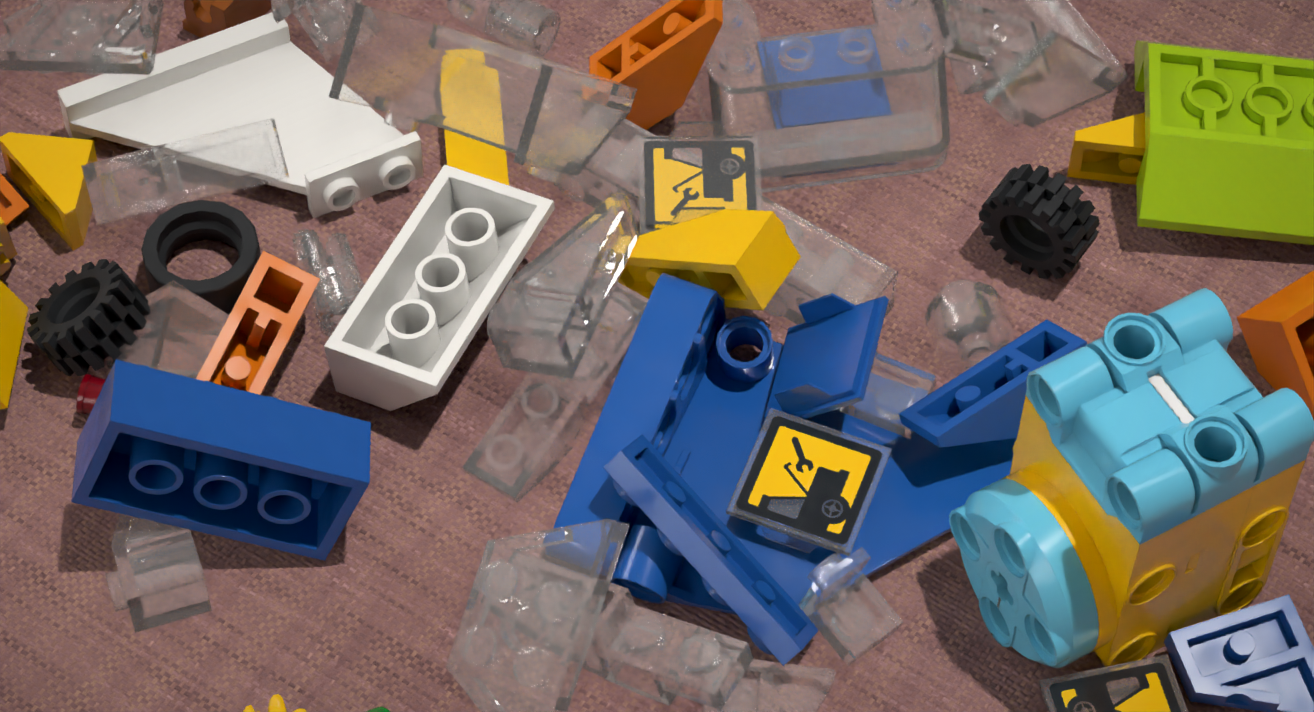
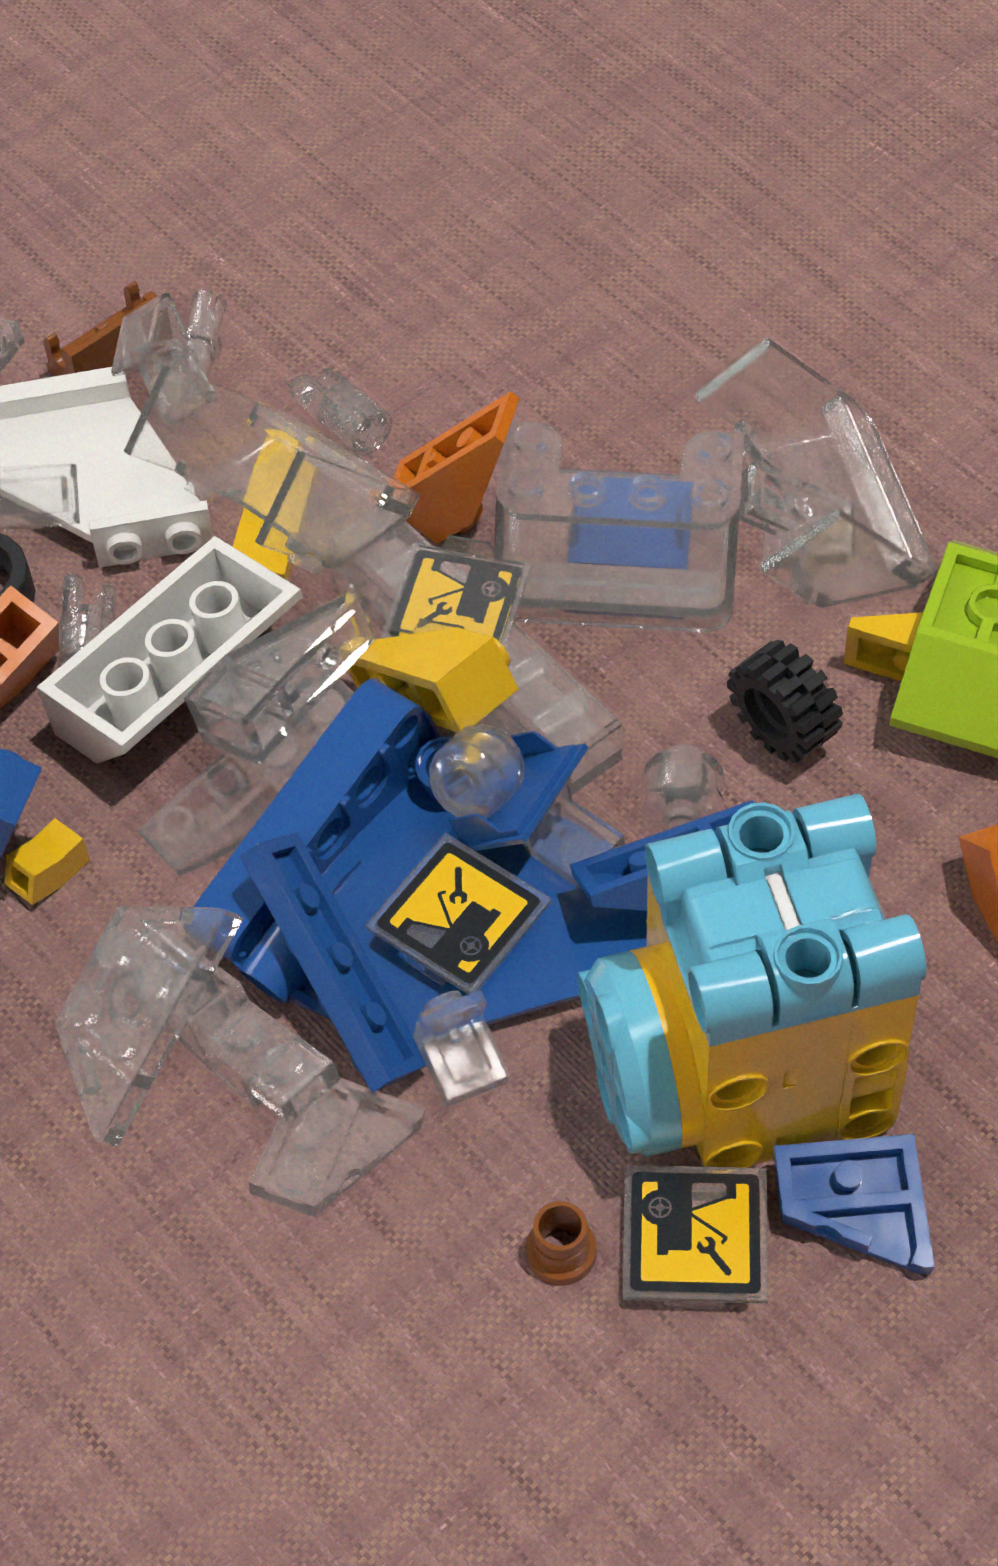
camera: 20 degrees right, 0 degrees up
(379, 516) = (45, 862): none -> yellow piece
(790, 342) = (476, 771): none -> clear head

